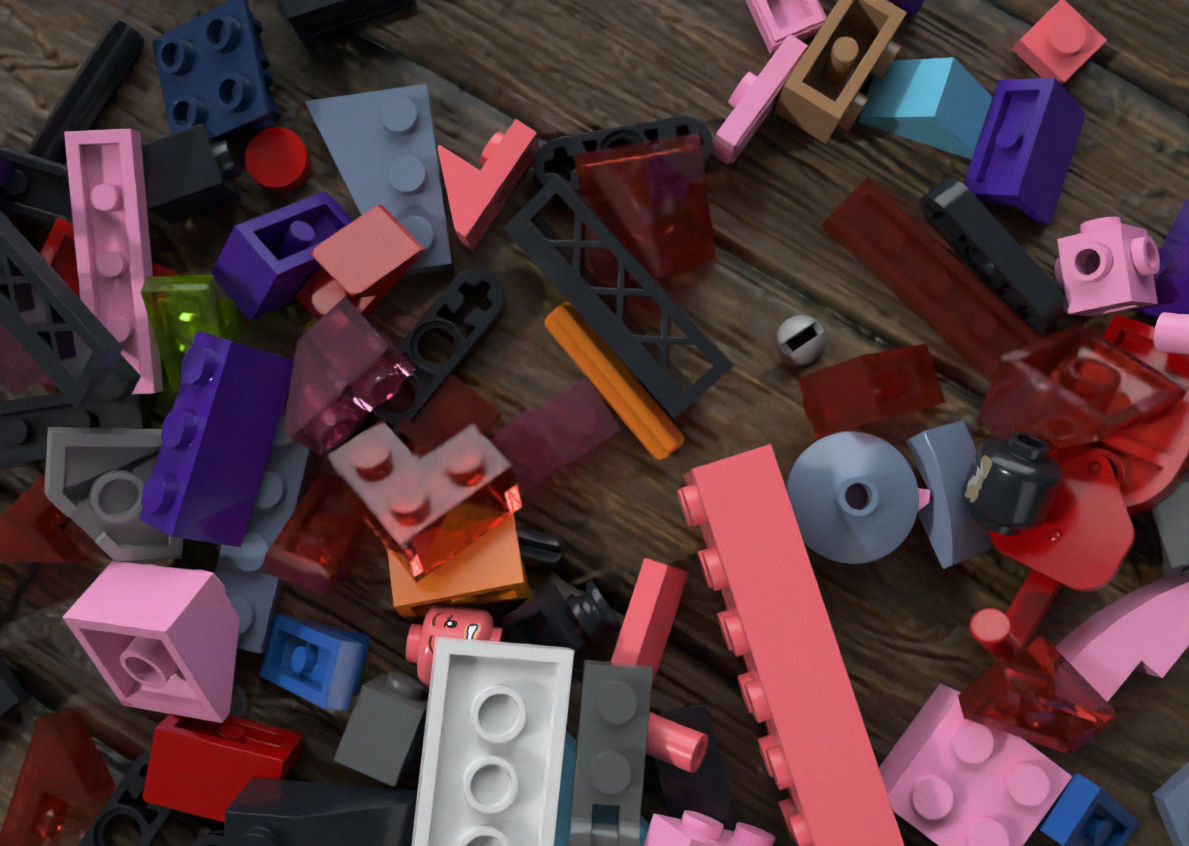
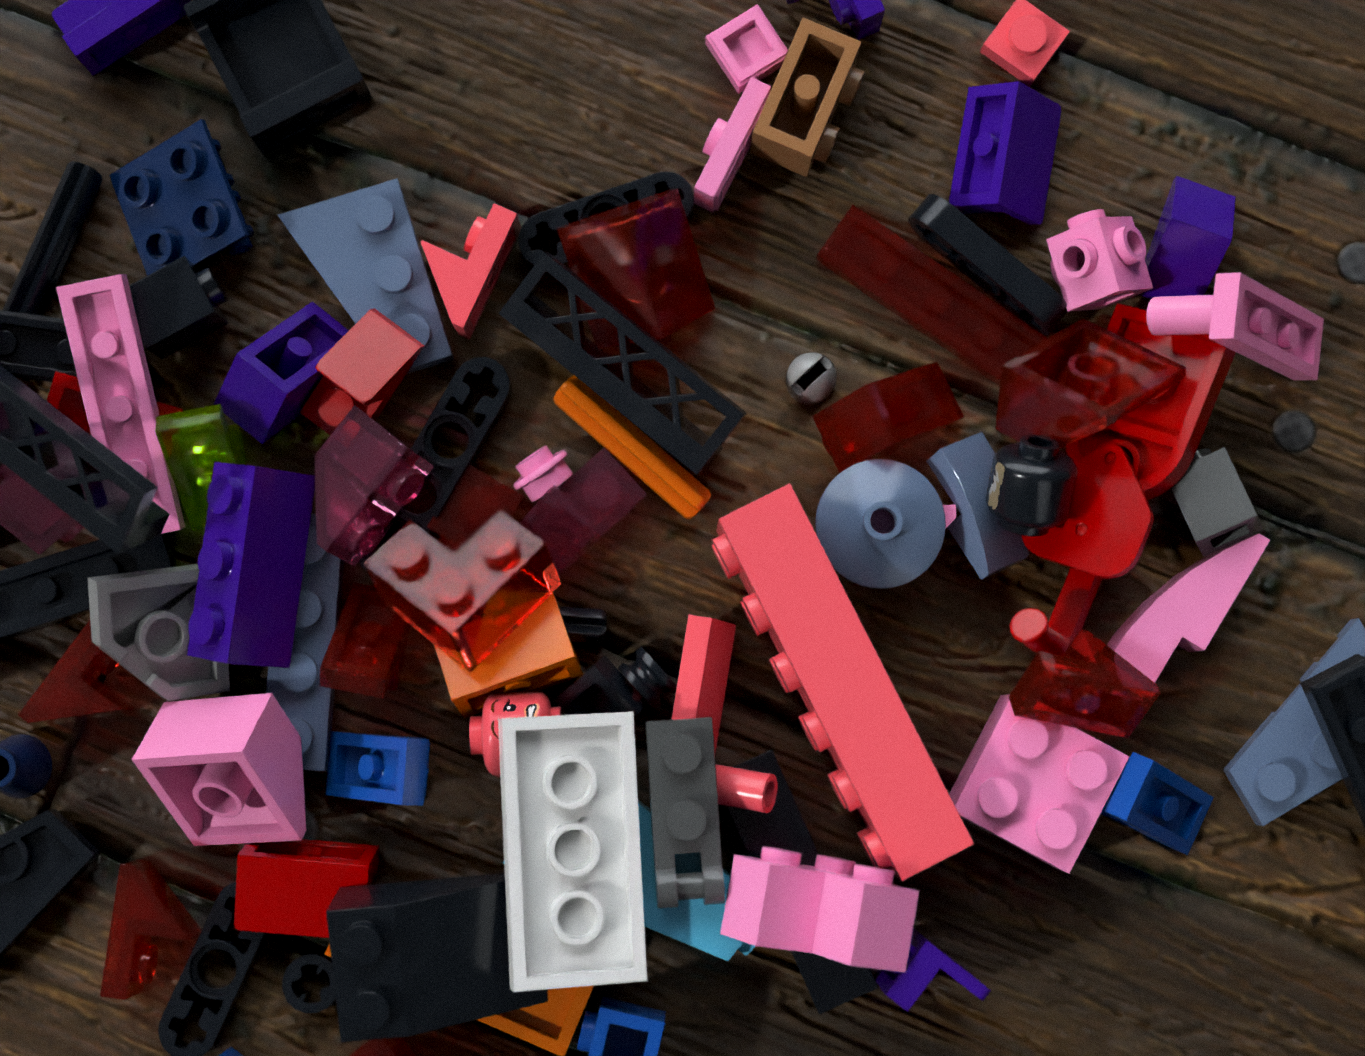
camera: 15 degrees left, 0 degrees up
(278, 160) = (259, 278): red tile -> none
(385, 728) = (462, 819): dark grey brick -> none
(521, 391) = (541, 472): none -> bright pink plate
(929, 103) = (903, 123): medium azure slope -> none

